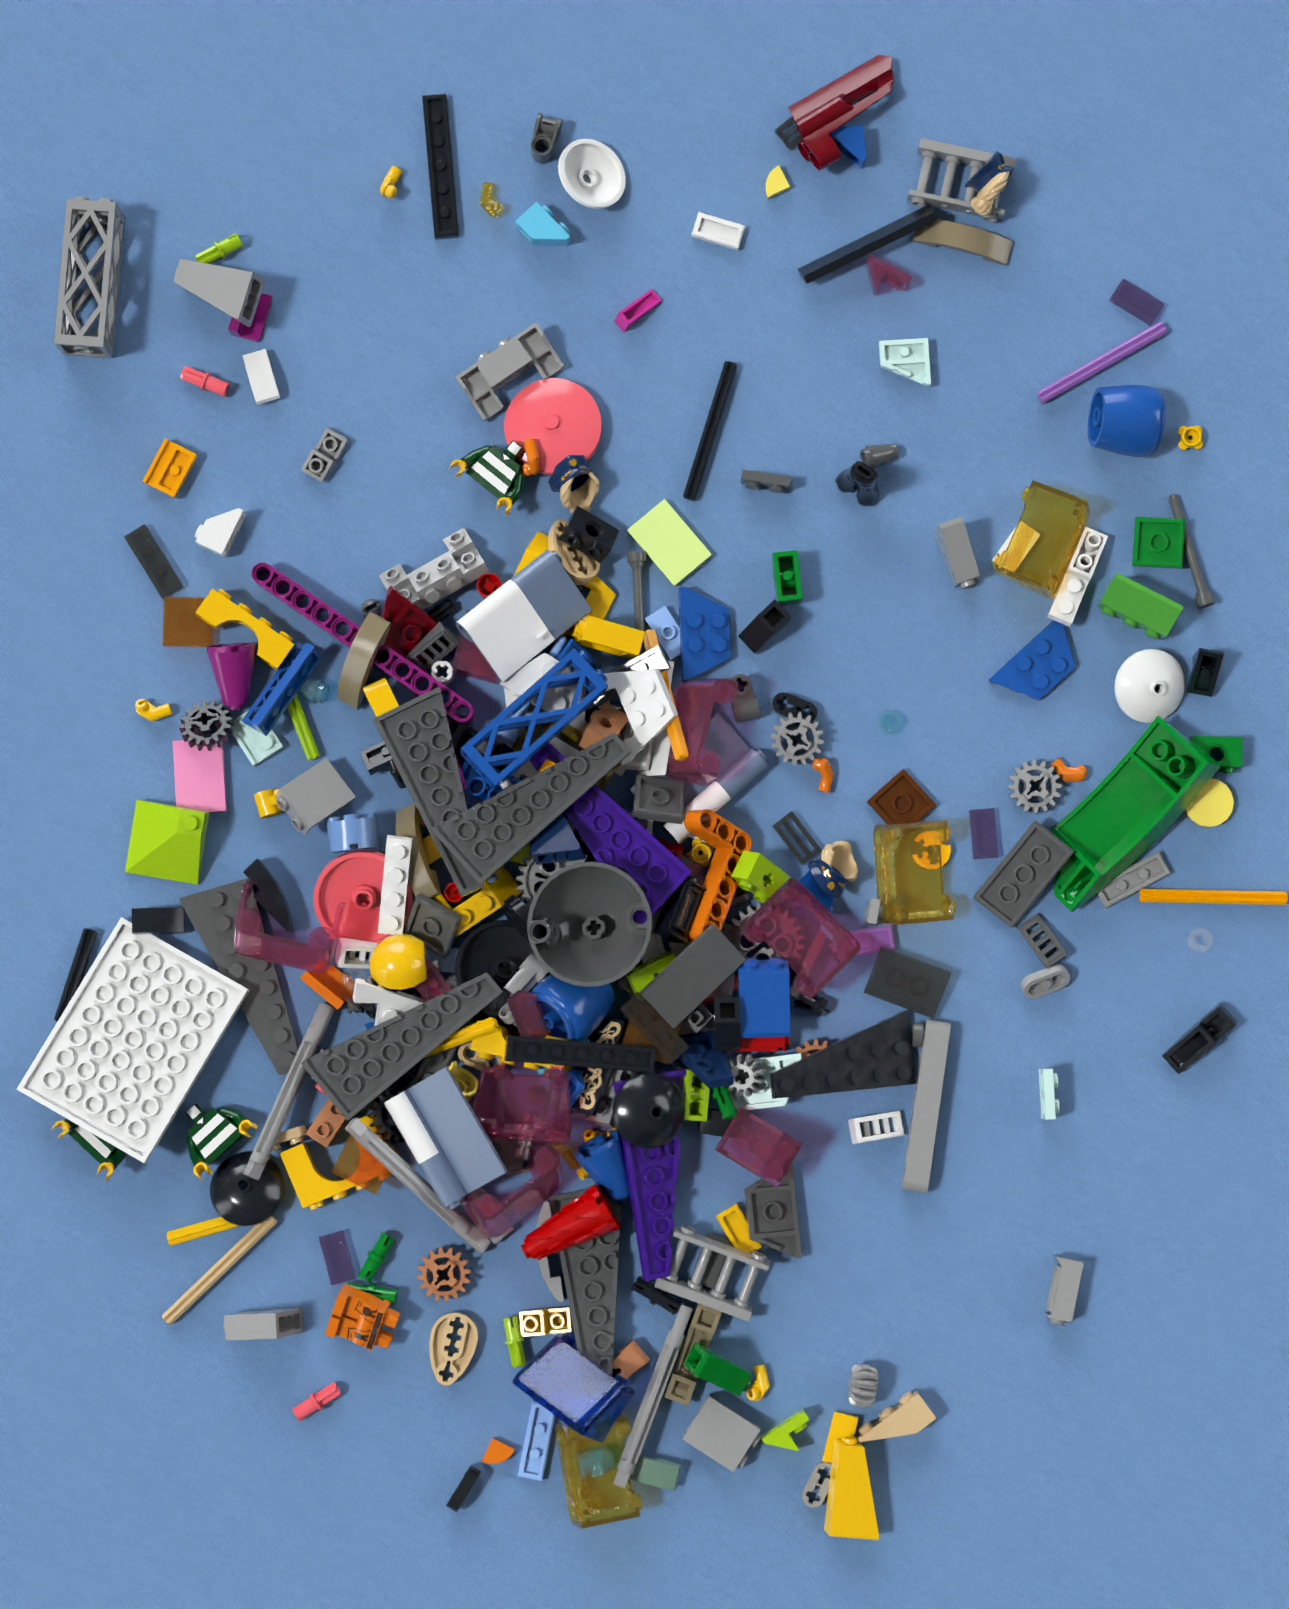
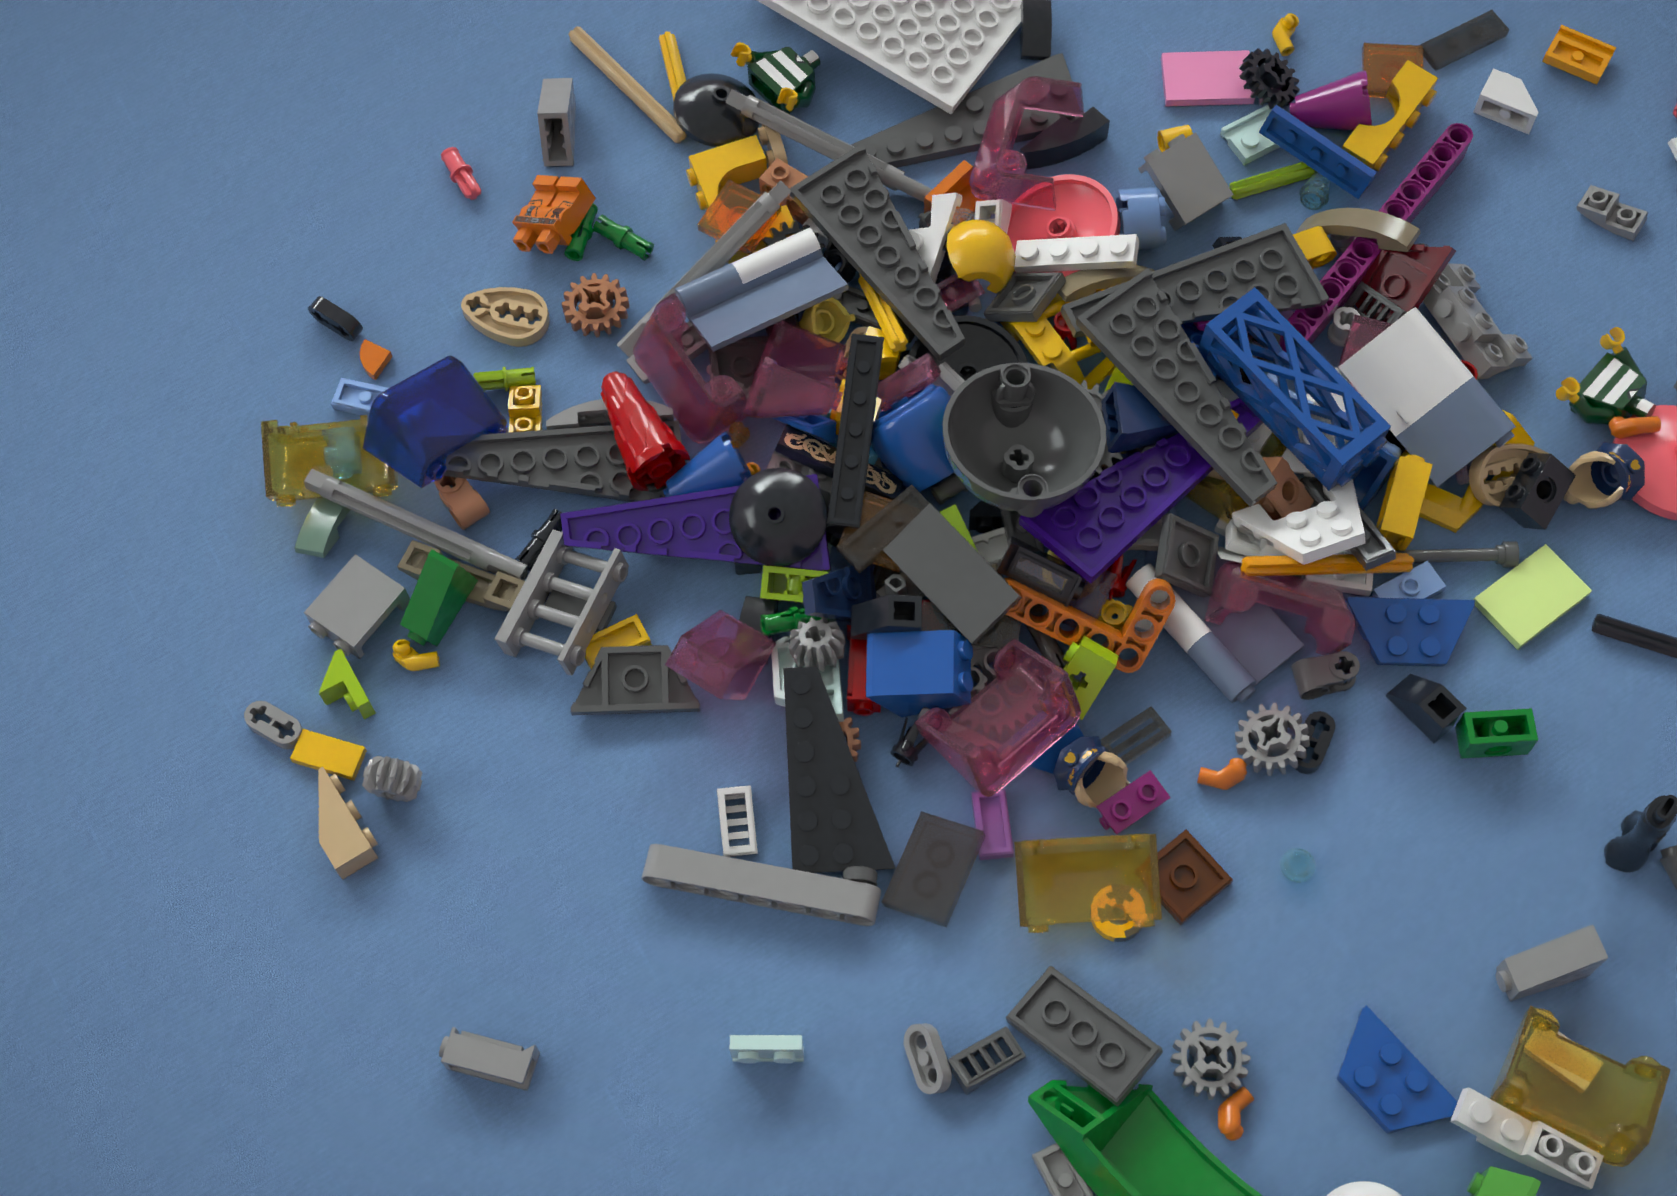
camera: 90 degrees right, 20 degrees down
(167, 841) = (1129, 45): lime slope -> none
(337, 1257) = (628, 200): clear purple tile -> none
(774, 482) = (1628, 727): dark grey plate -> none
(850, 1498) = (252, 756): yellow slope -> none
(852, 839) = (1132, 803): none -> magenta hinge
(873, 912) = (1032, 819): light grey plate -> none
(983, 834) = (1140, 987): clear purple tile -> none

